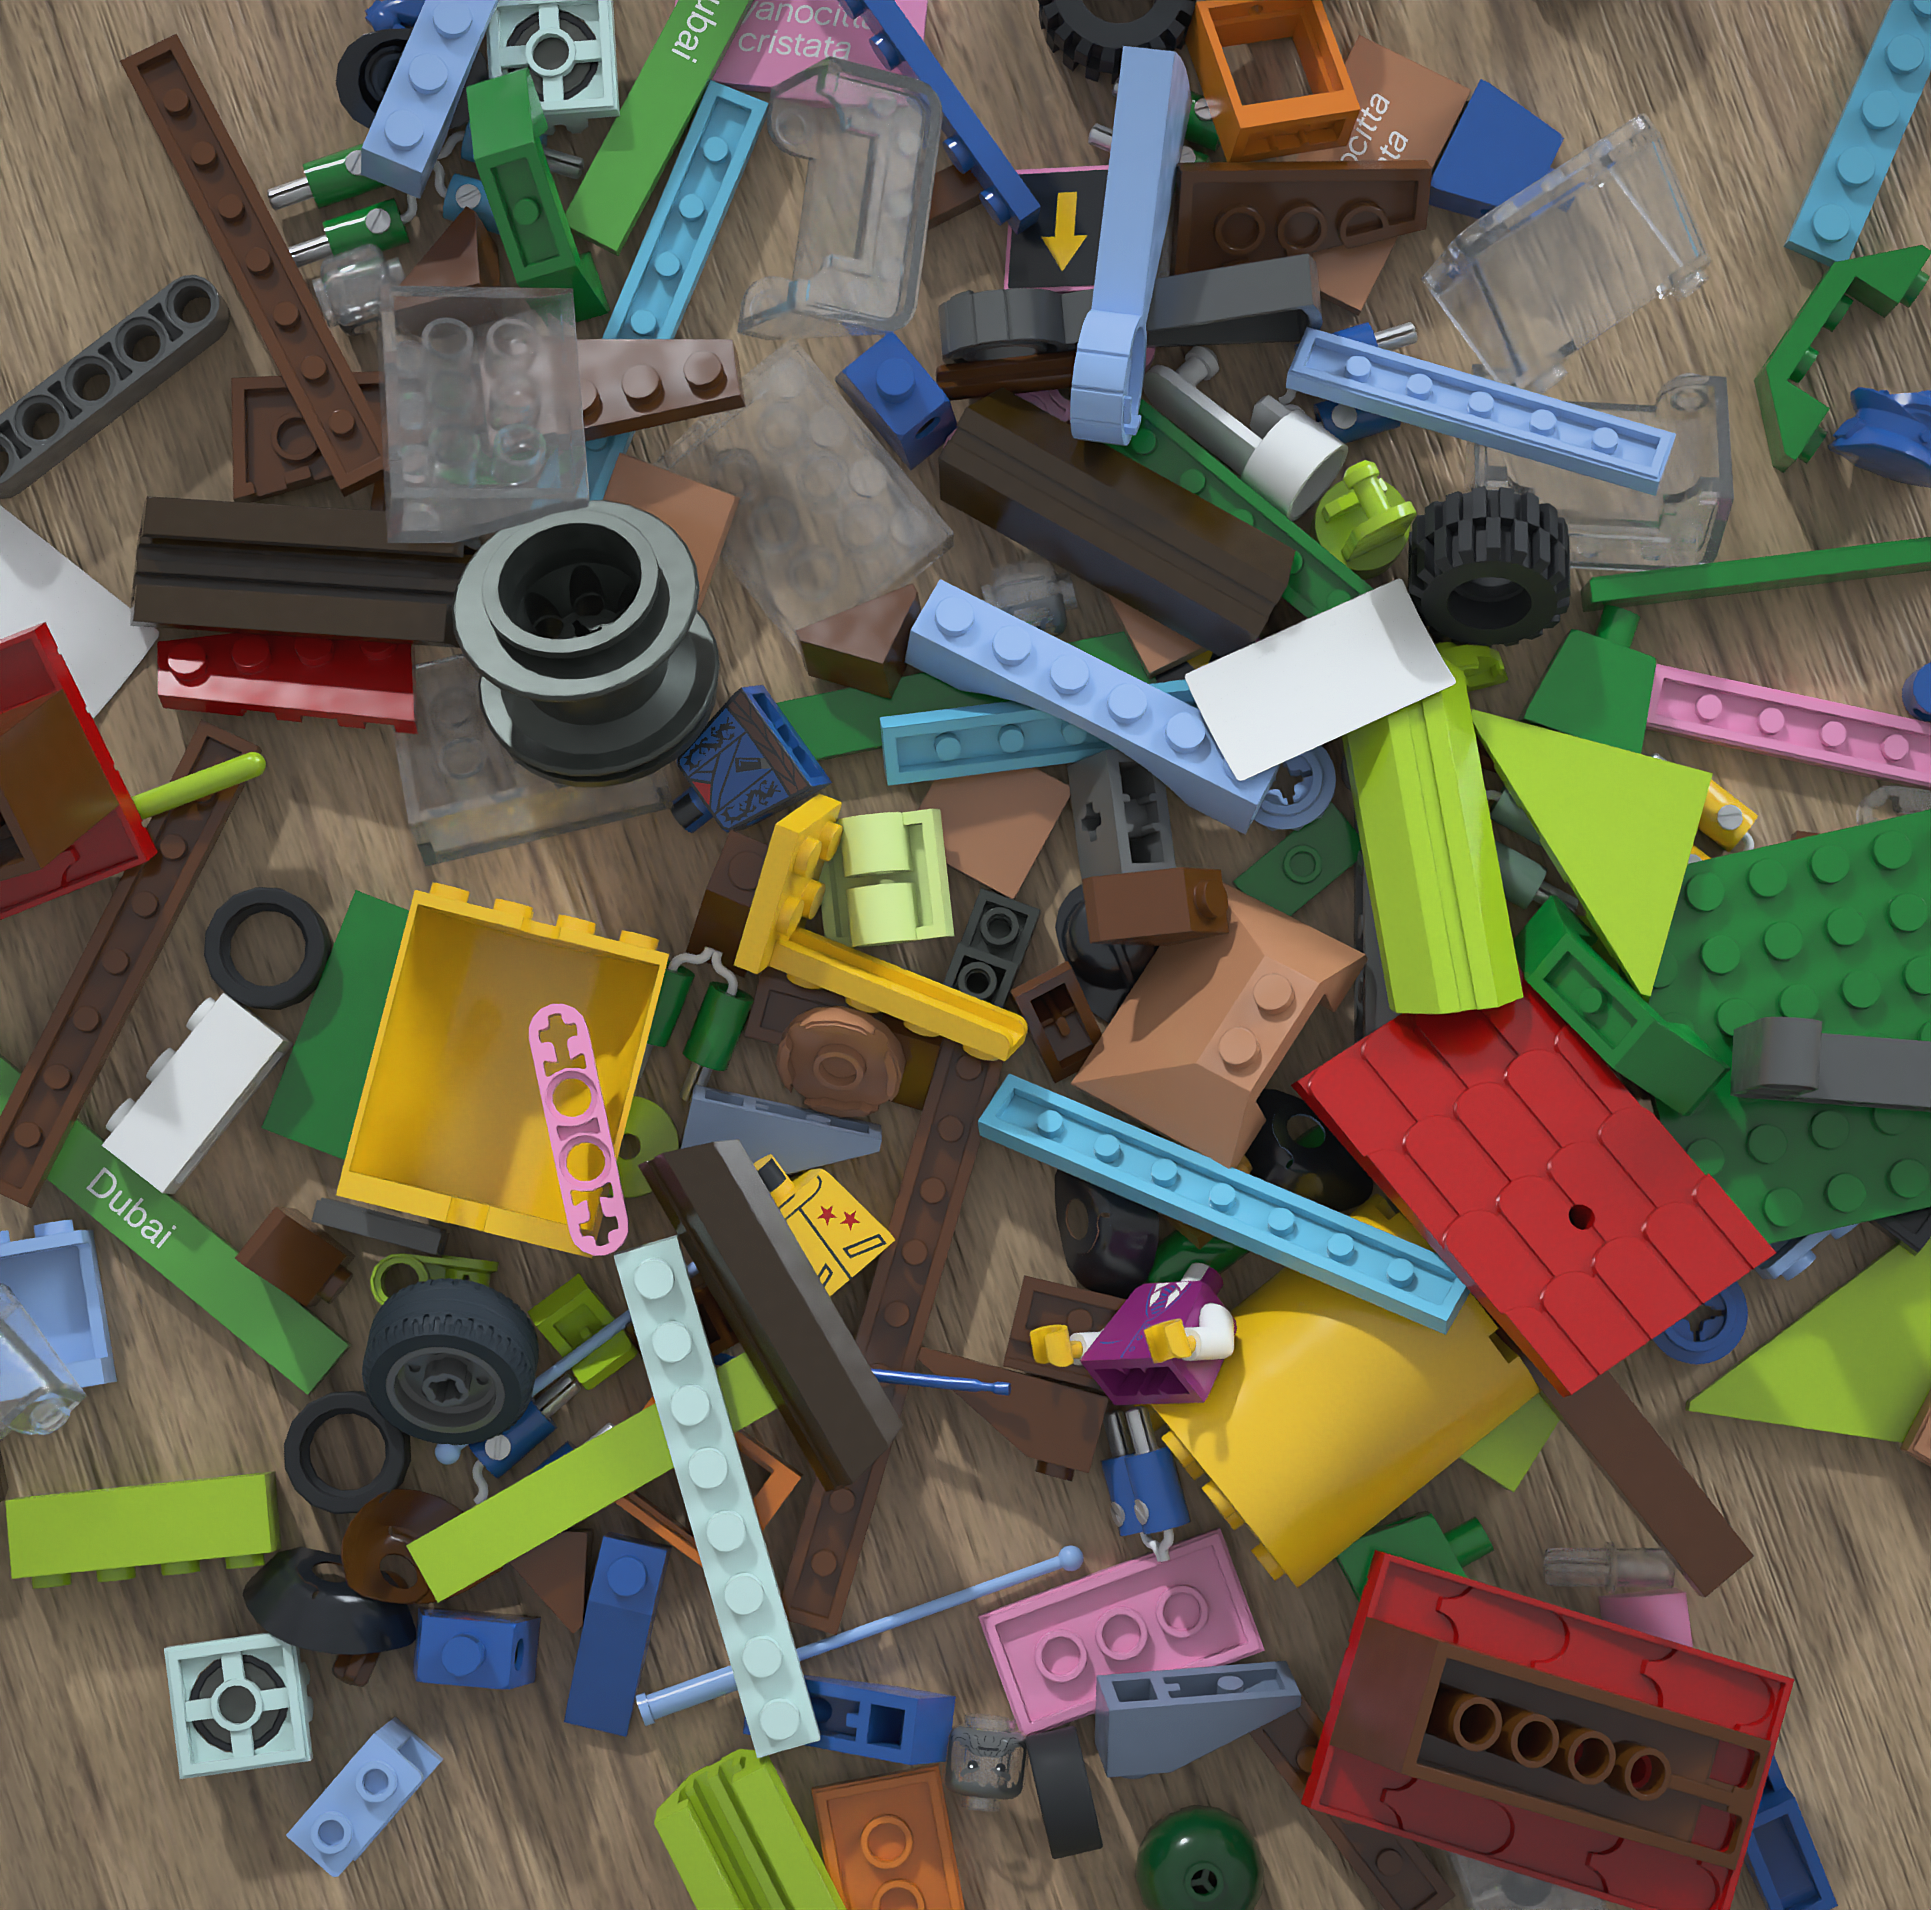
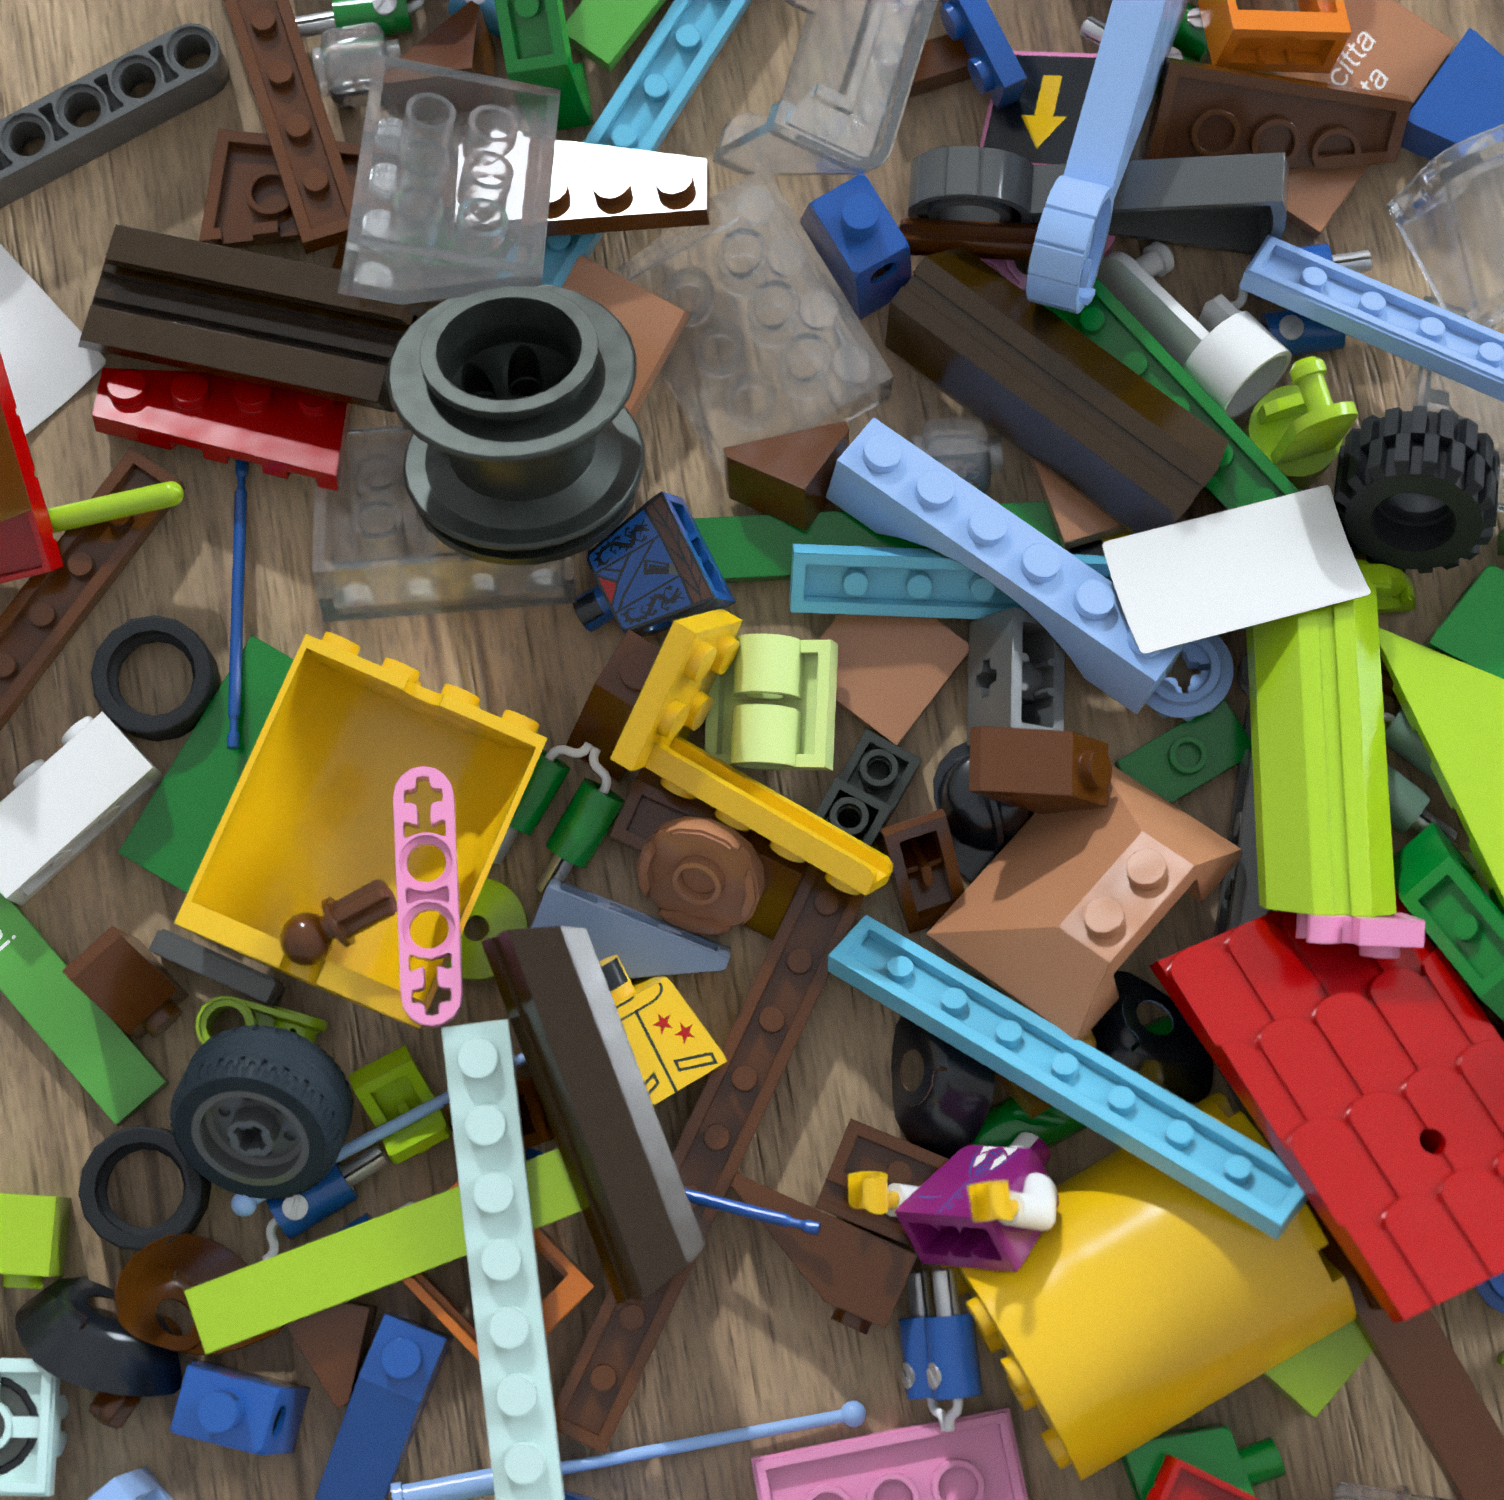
camera: 10 degrees right, 5 degrees down
(336, 863) = (237, 605): none -> blue piece
(470, 1187) = (310, 937): none -> reddish brown axle
(1503, 1024) = (1374, 935): none -> bright pink plate

